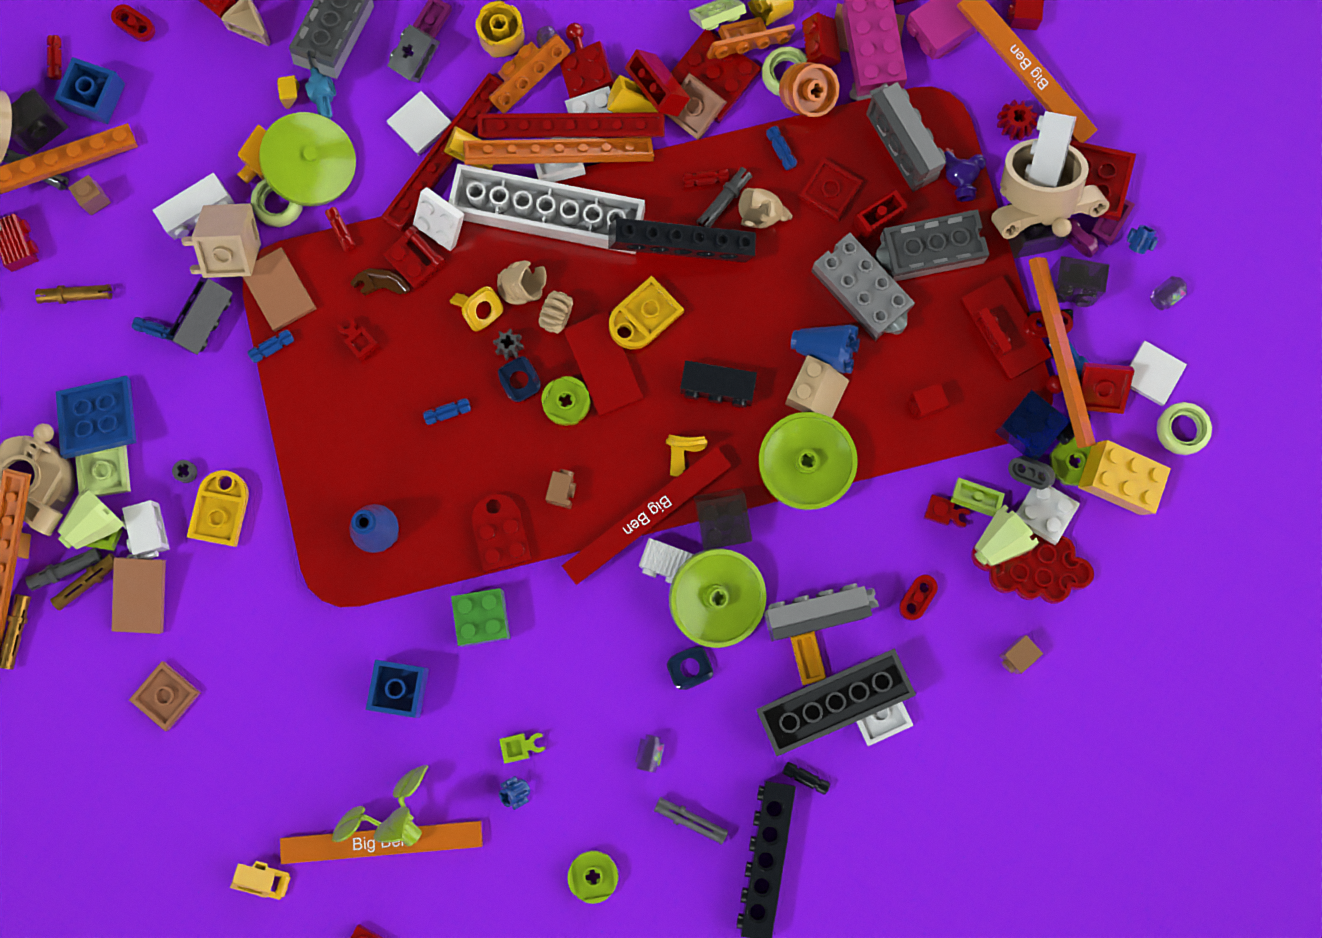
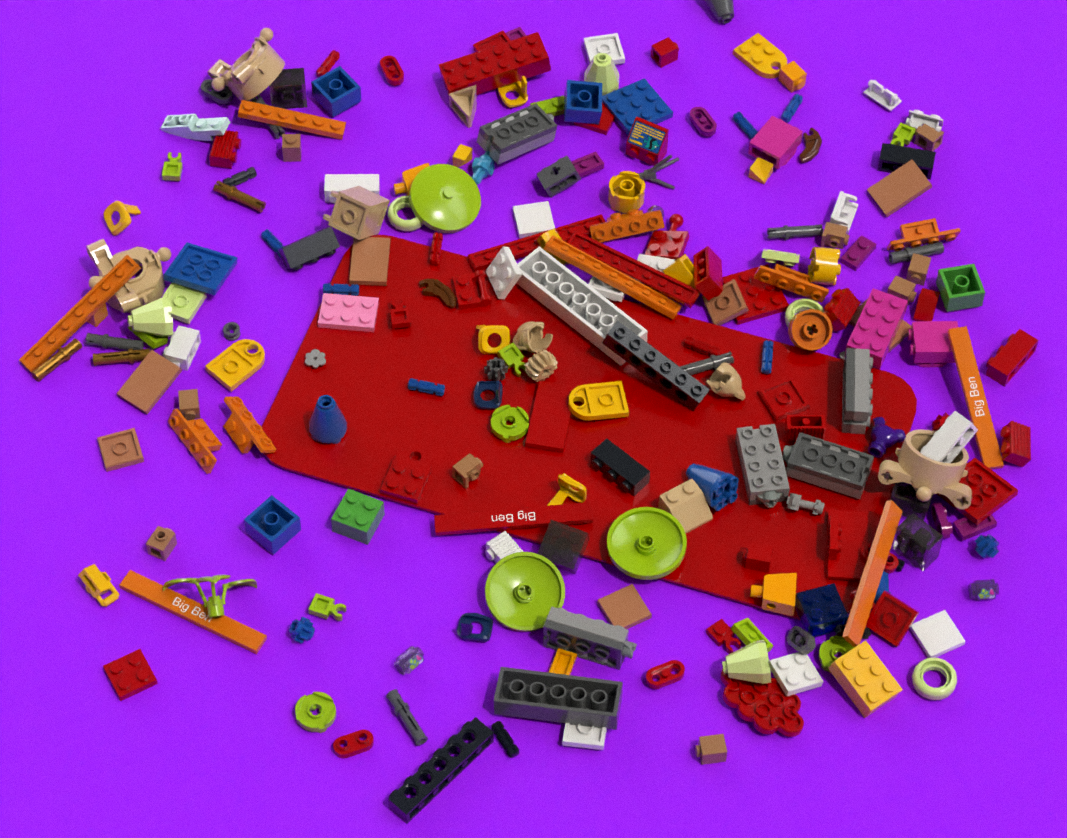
camera: 30 degrees right, 25 degrees down
(57, 267) = (240, 177): none -> black axle
(203, 596) = (189, 404): none -> medium nougat brick
(240, 629) = (197, 439): none -> orange bracket
(285, 586) = (245, 429): none -> orange bracket
(291, 784) = (161, 543): none -> brick
(296, 451) = (315, 358): none -> light grey plant
(298, 370) = (348, 312): none -> bright pink plate
(515, 317) = (512, 357): none -> lime plate
(655, 885) = (354, 744): none -> red plate
(826, 545) = (624, 607): none -> nougat tile
(922, 309) = (795, 502): none -> light grey bar
(975, 432) = (777, 593): none -> light orange torso
(1098, 97) = (1016, 443): none -> red brick

